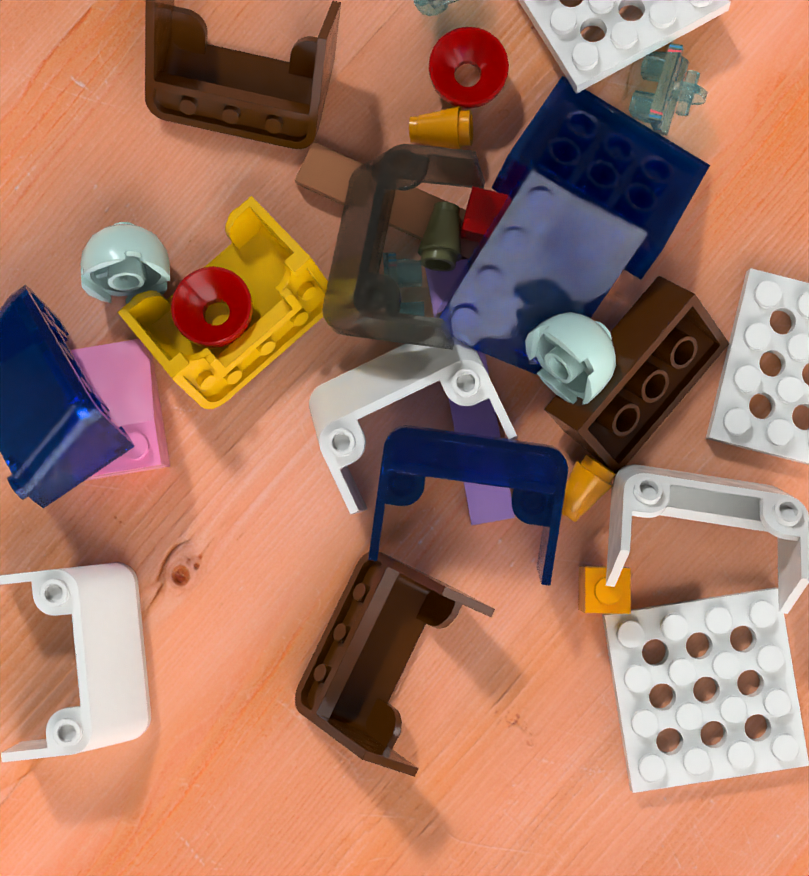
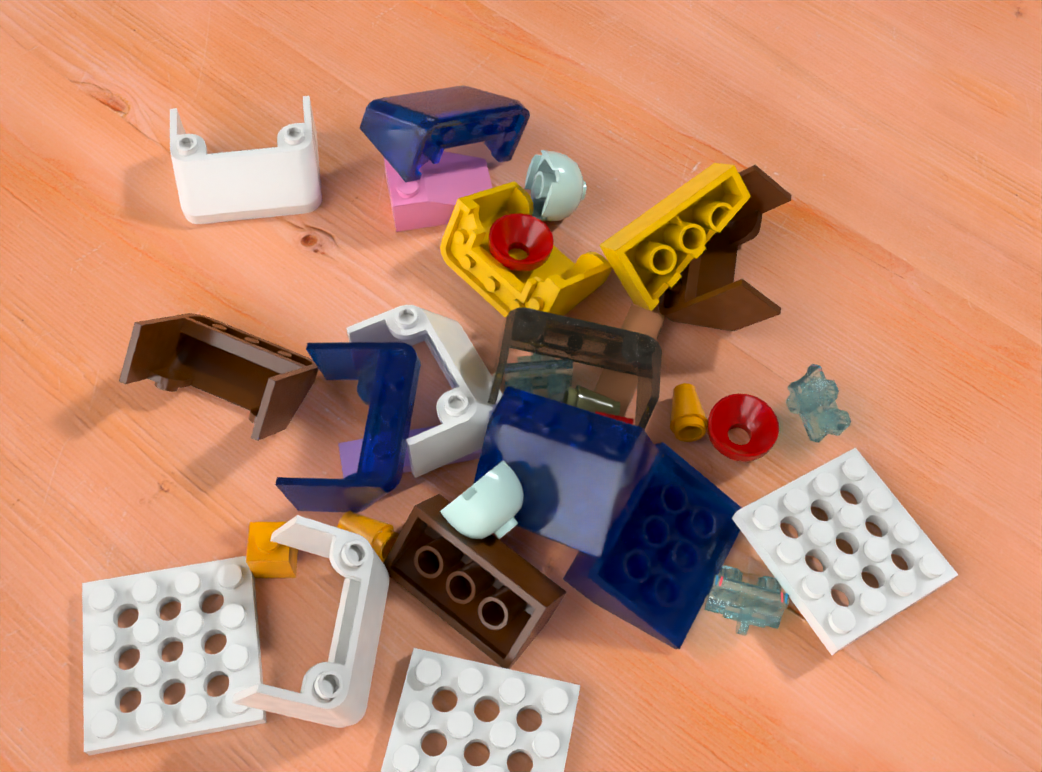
camera: 85 degrees right, 25 degrees down
(221, 110) = (673, 232): none -> yellow wedge

